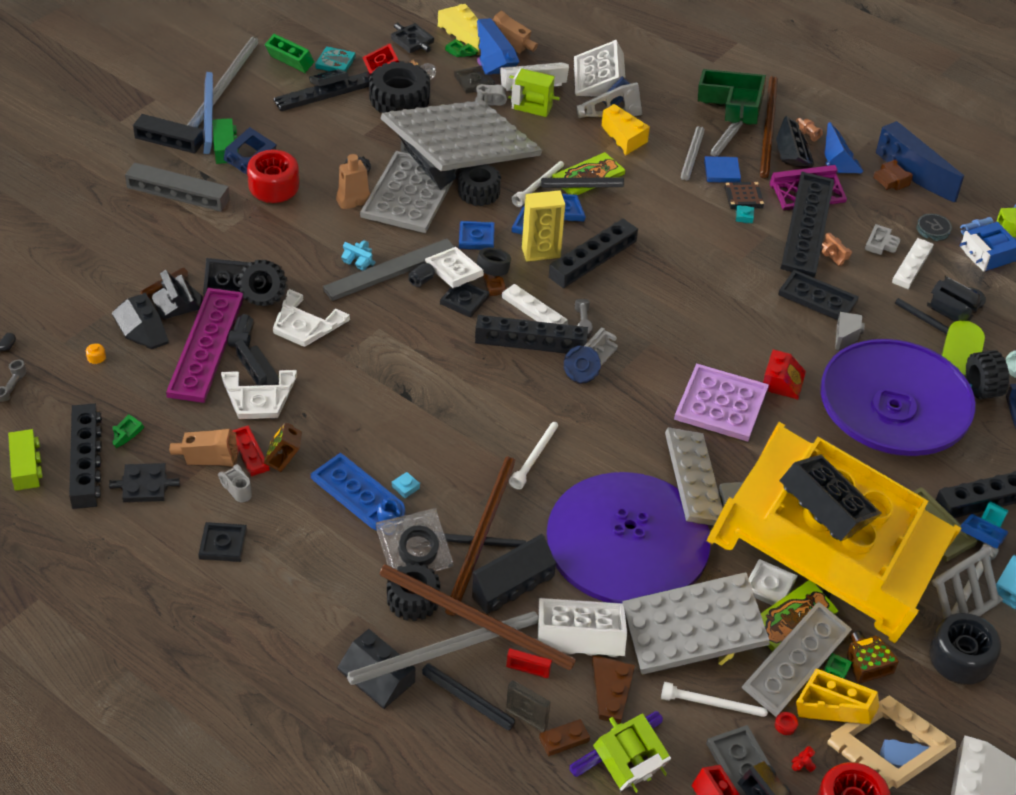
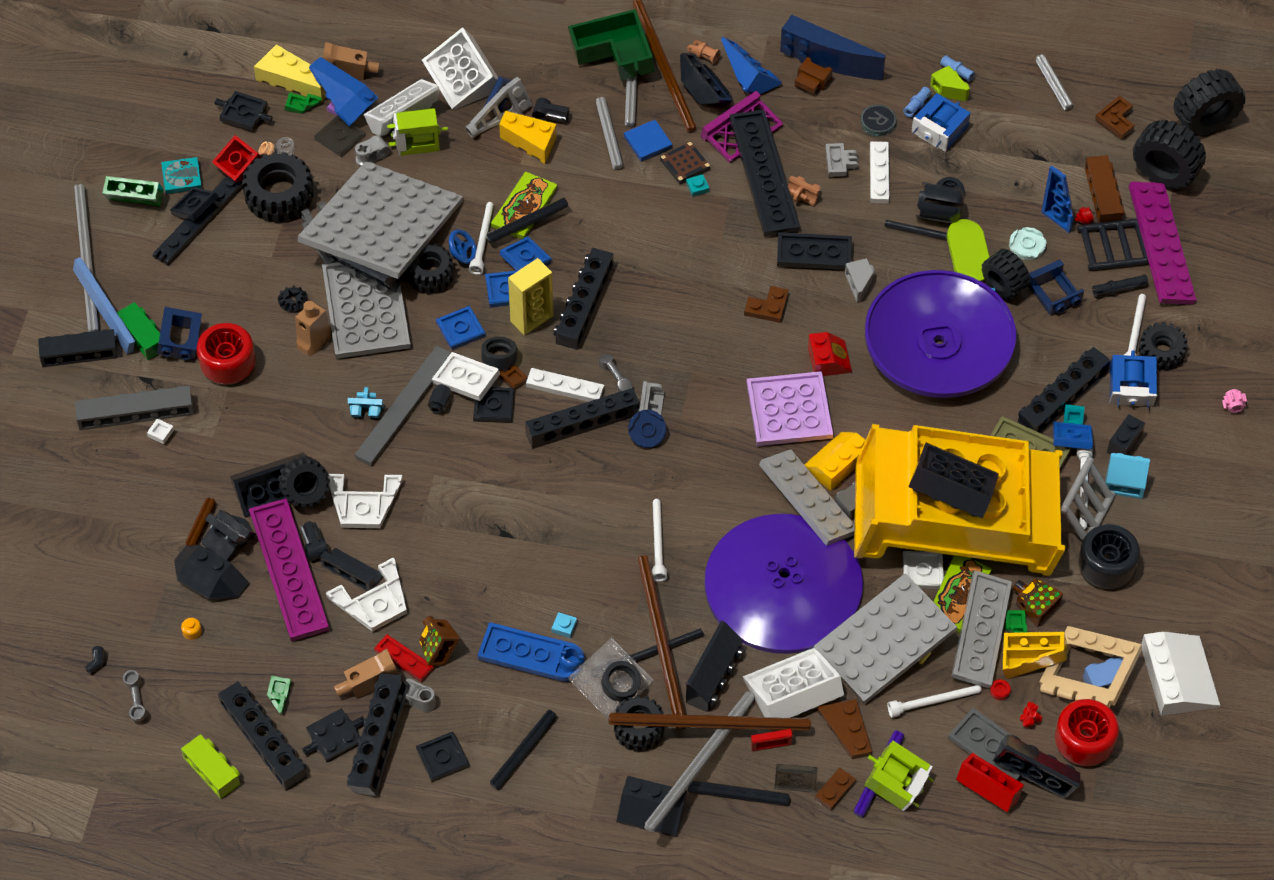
camera: 25 degrees left, 10 degrees up
(176, 495) = (396, 689): none -> black brick
(184, 210) = (160, 431): none -> white plate
(296, 568) = (523, 749): none -> black axle
(514, 180) = (458, 248): none -> blue piece
(656, 123) = (546, 110): none -> black piece
(737, 460) = (836, 459): none -> yellow slope
(750, 323) = (769, 309): none -> reddish brown plate

